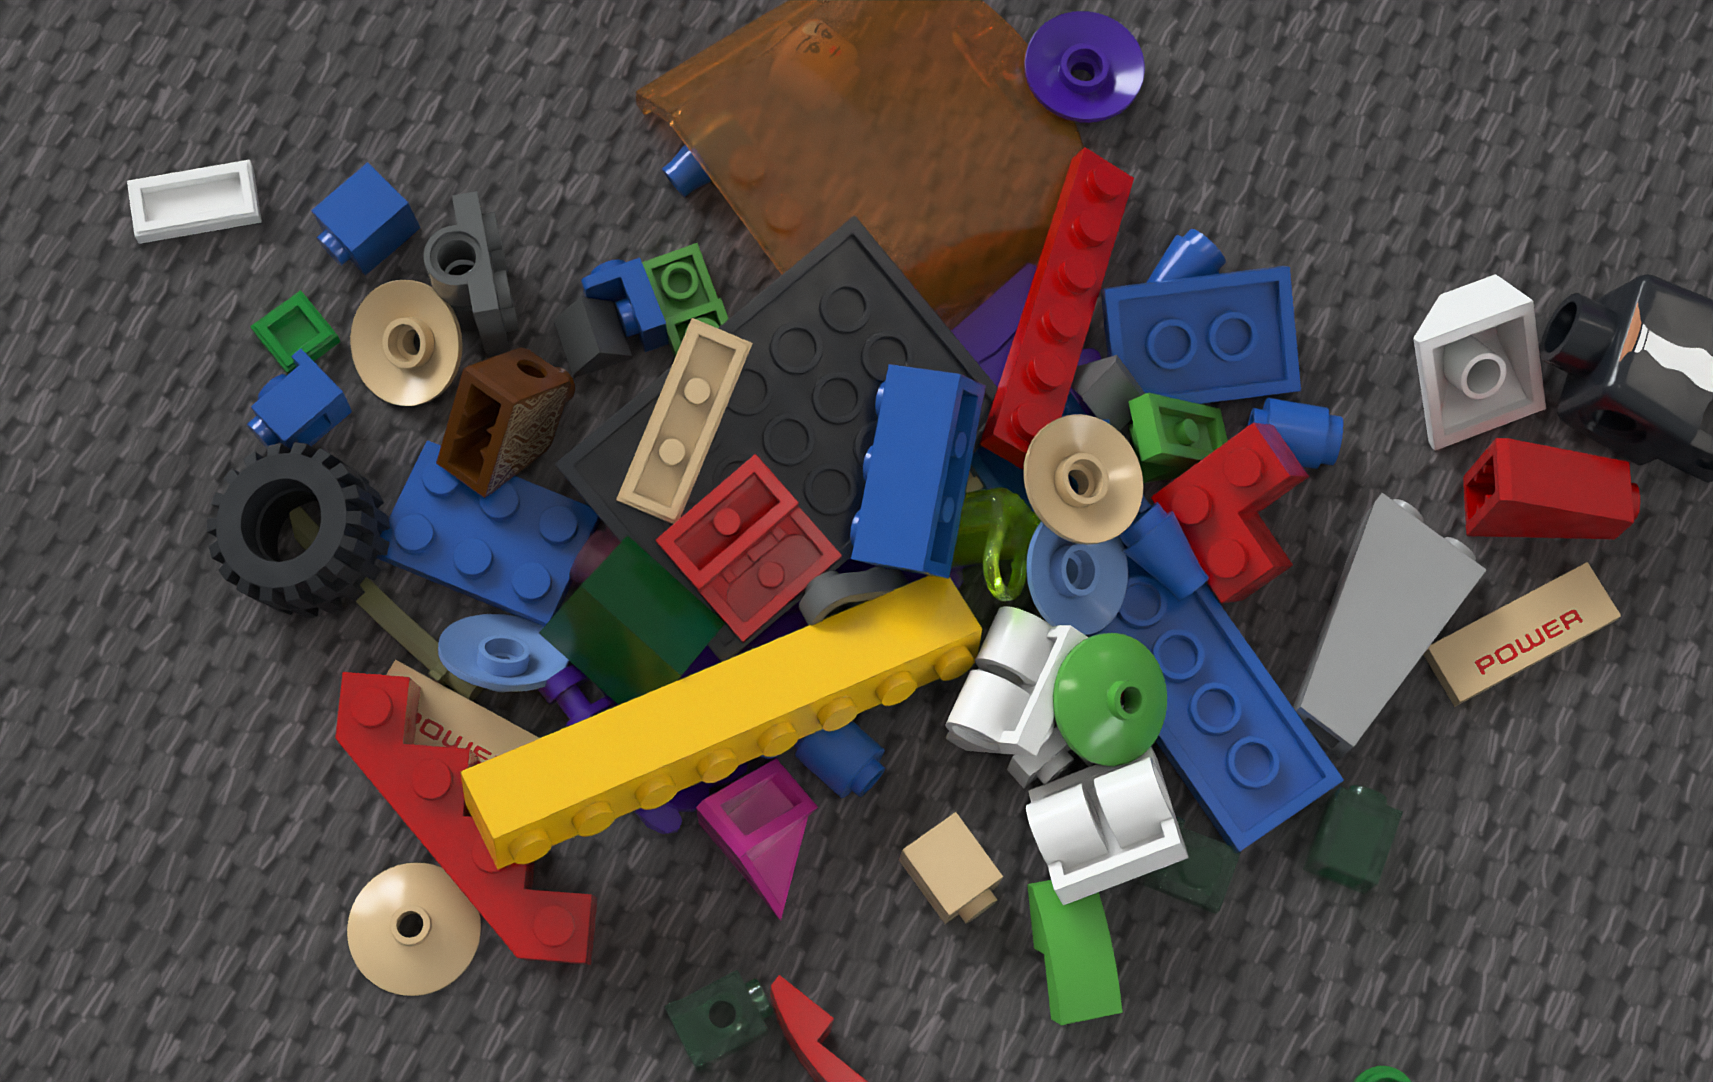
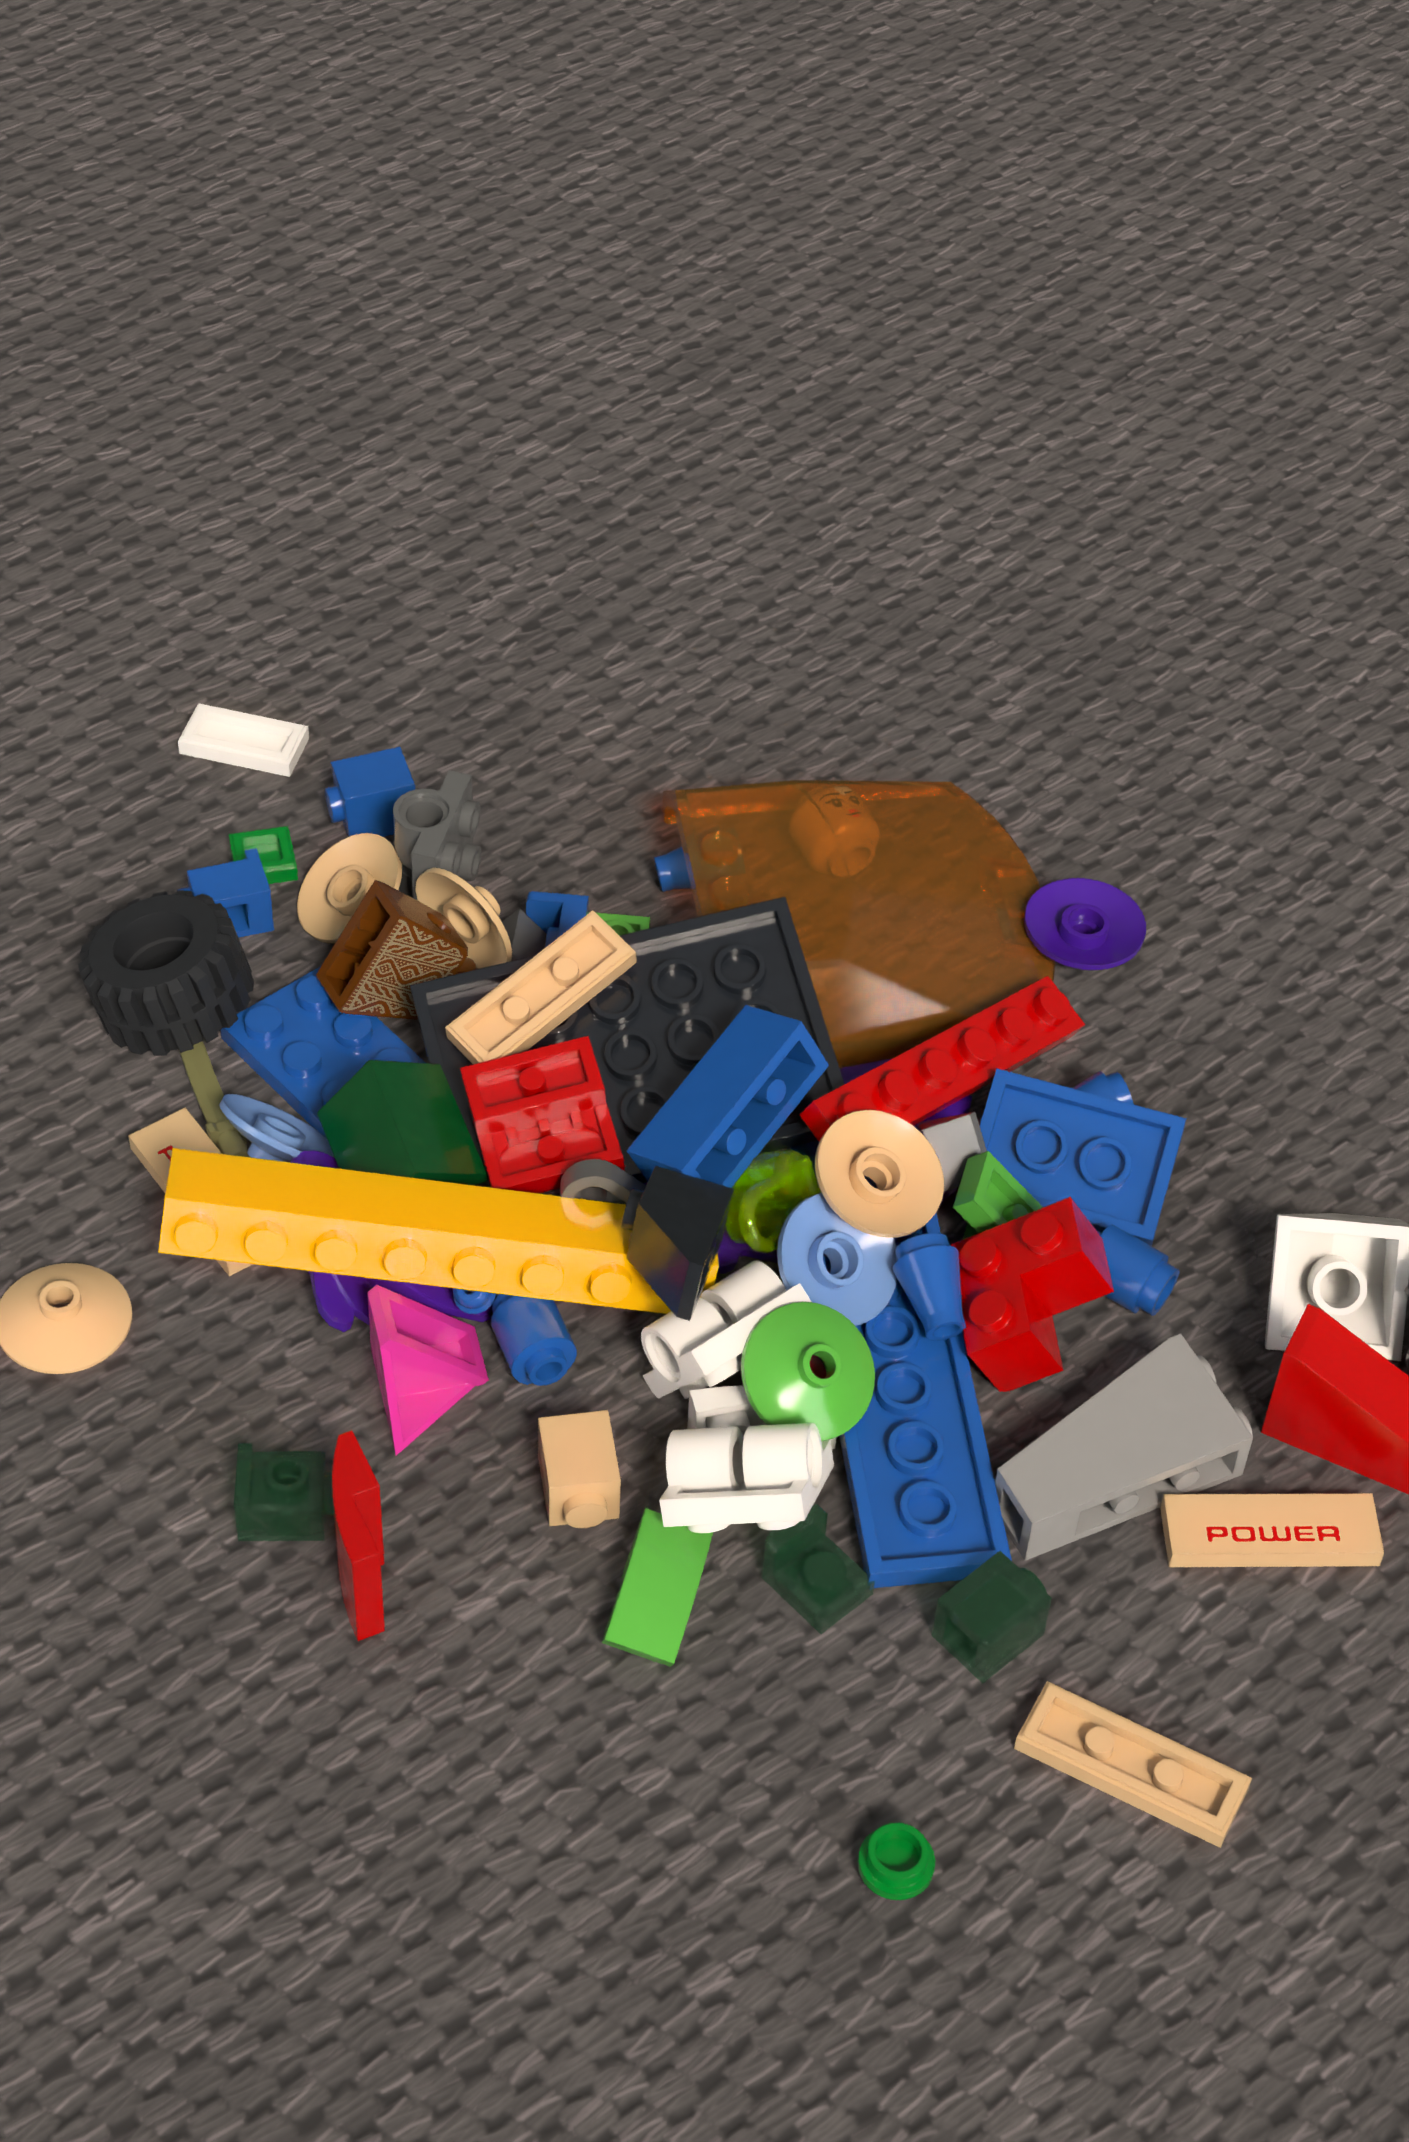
camera: 30 degrees right, 25 degrees down
(427, 792) = (175, 1338): red brick -> none
(552, 340) = (471, 913): none -> tan dish
(948, 635) = (676, 1235): none -> black slope
(1515, 912) = (1133, 1763): none -> tan tile

